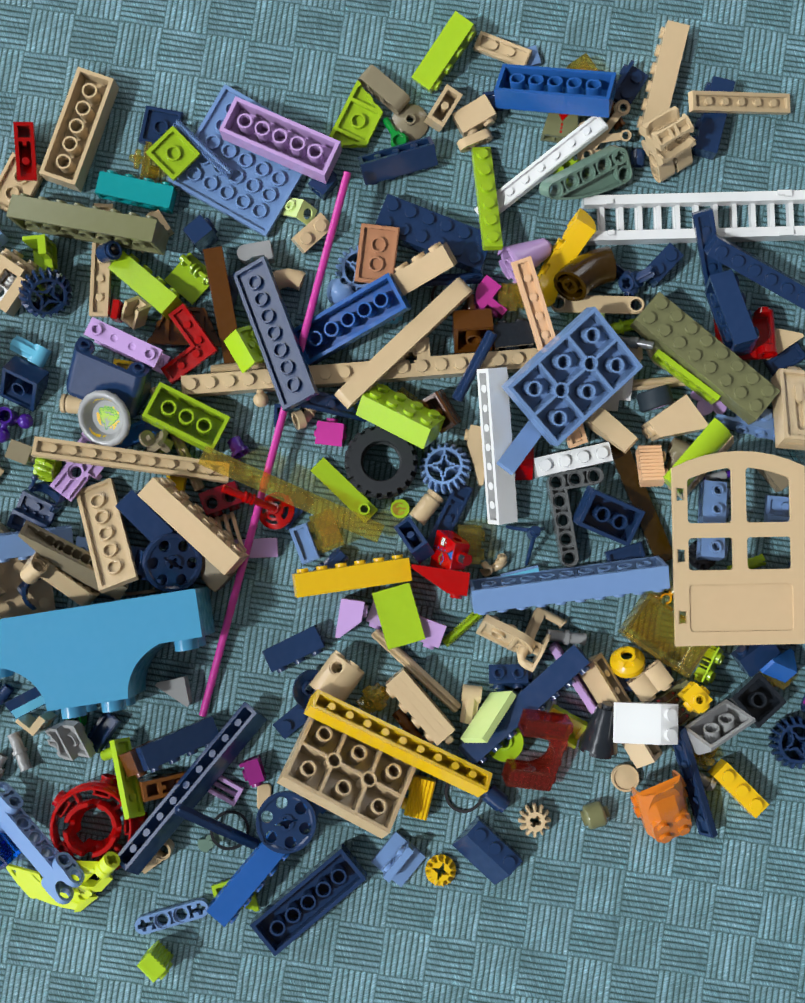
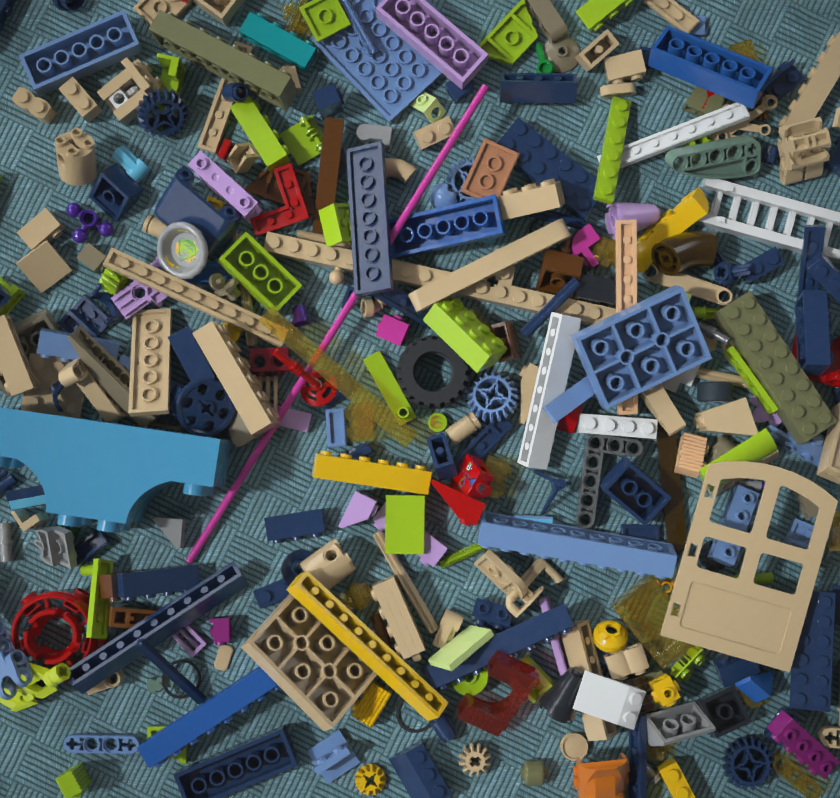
camera: 20 degrees right, 0 degrees up
(281, 830) = (231, 695): dark blue wedge -> none
(500, 562) = (518, 503): tan arm -> none
(567, 637) = (559, 594): light grey pin -> none

